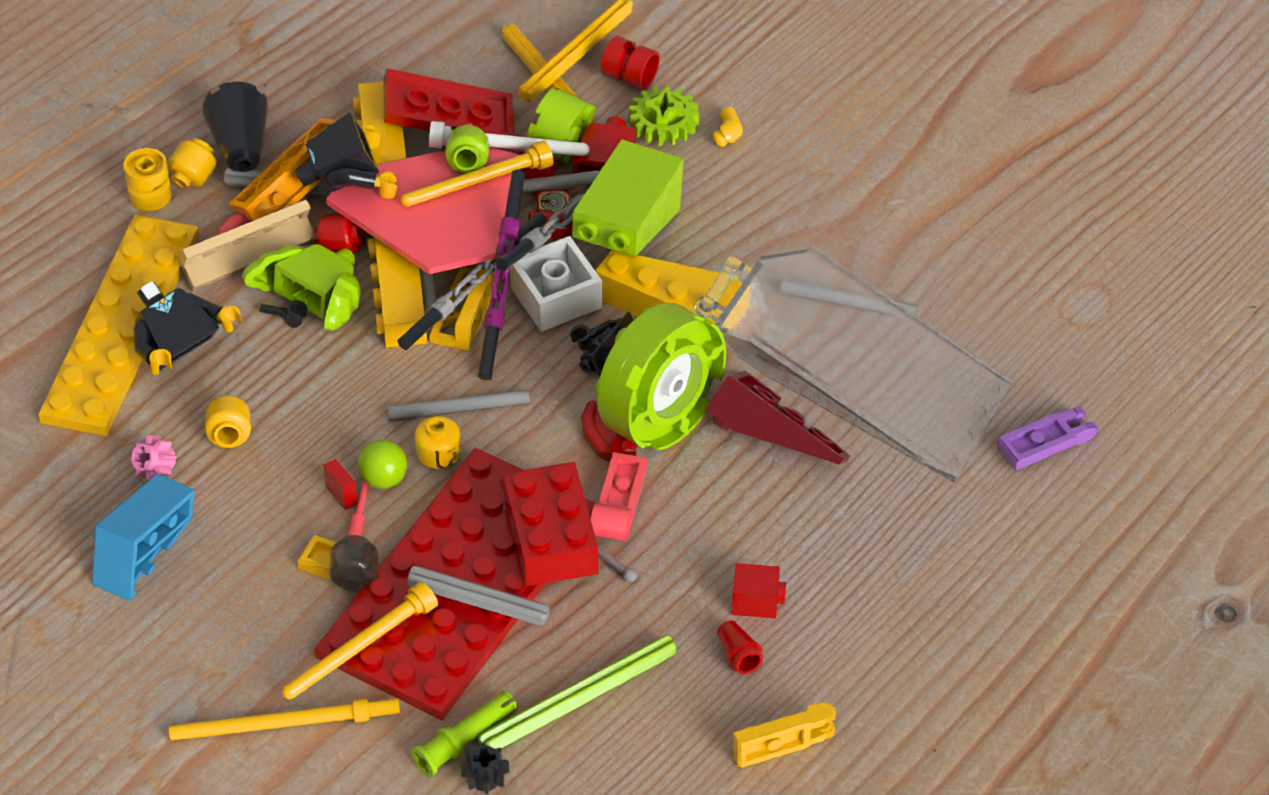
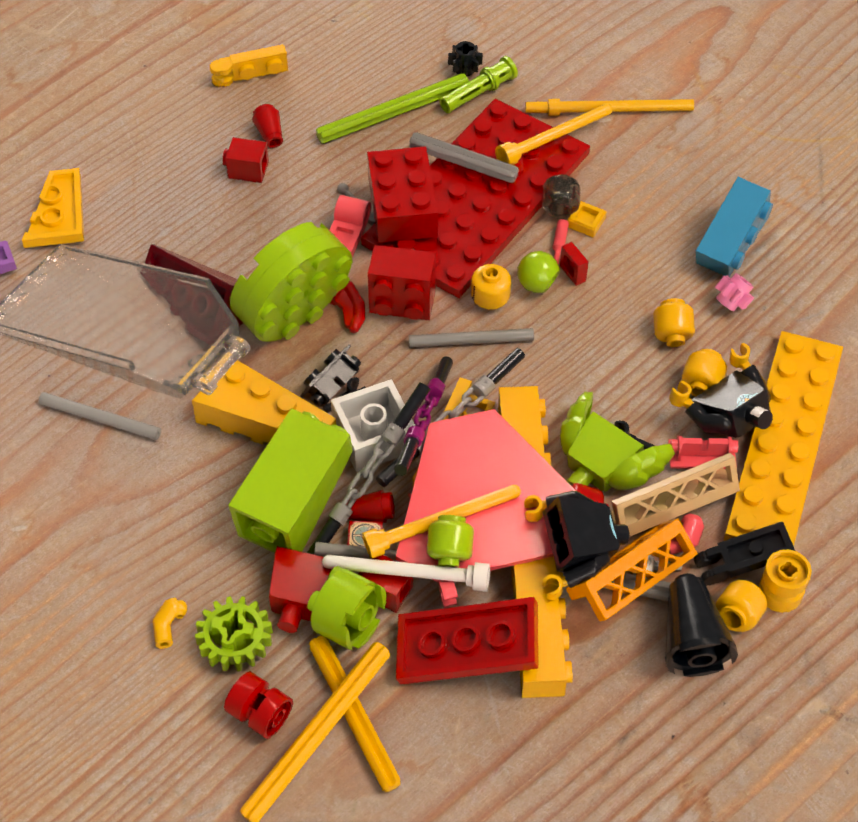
camera: 175 degrees left, 5 degrees up
(181, 200) = (743, 553): none -> black hinge
(200, 366) = (704, 370): none -> yellow head
(222, 293) = (695, 451): none -> coral hinge
(540, 424) = (402, 282): none -> red brick
(970, 512) = (59, 211): none -> yellow wing

